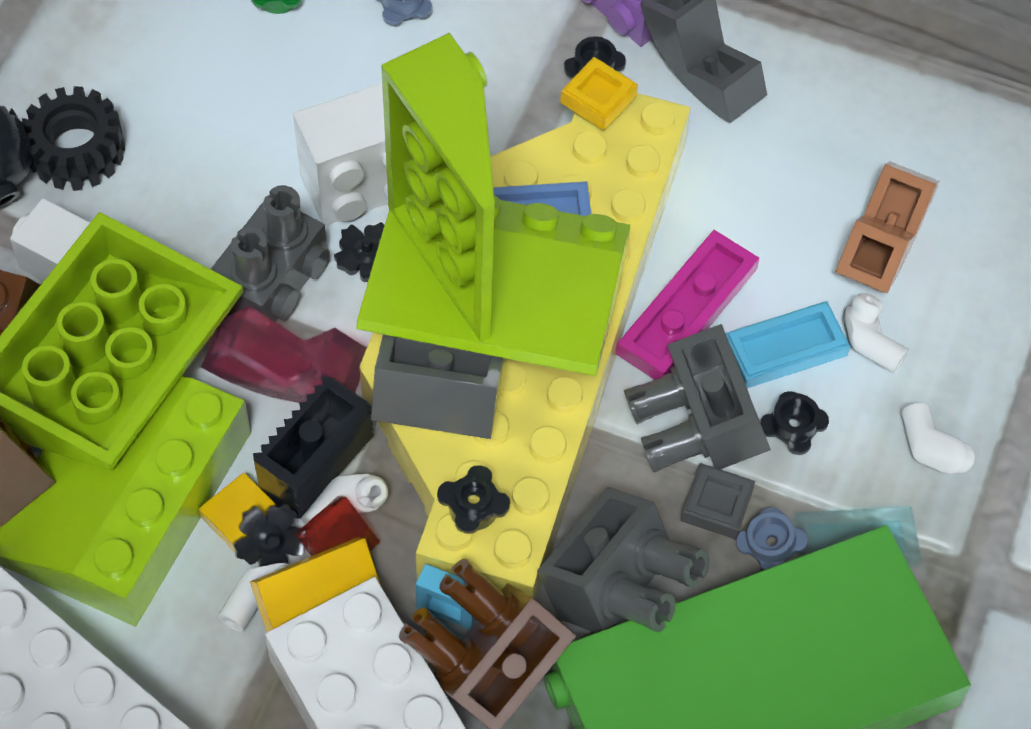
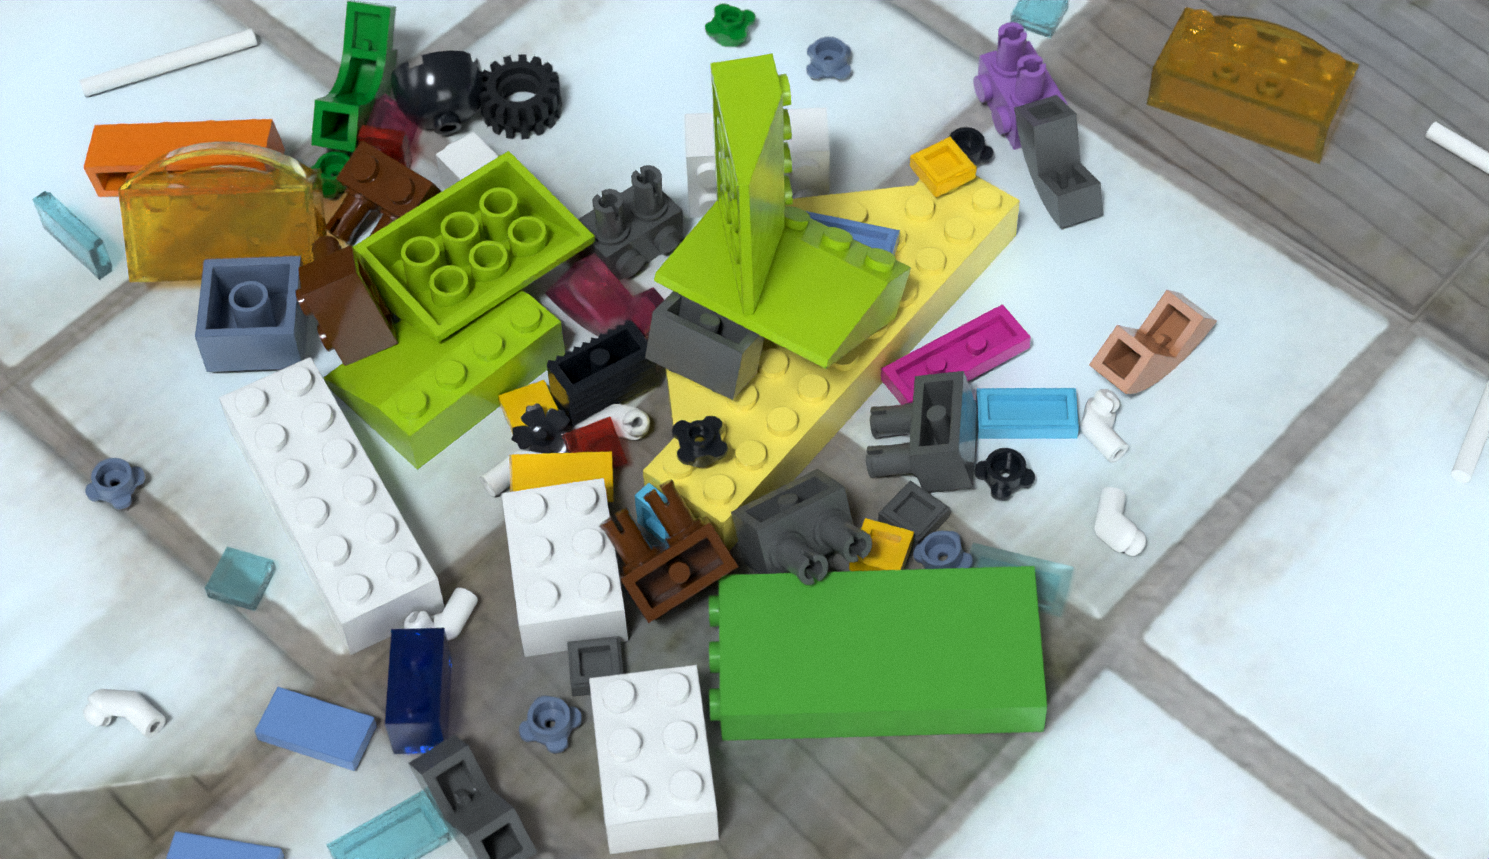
camera: 25 degrees right, 5 degrees down
(720, 545) = (889, 547): none -> yellow plate

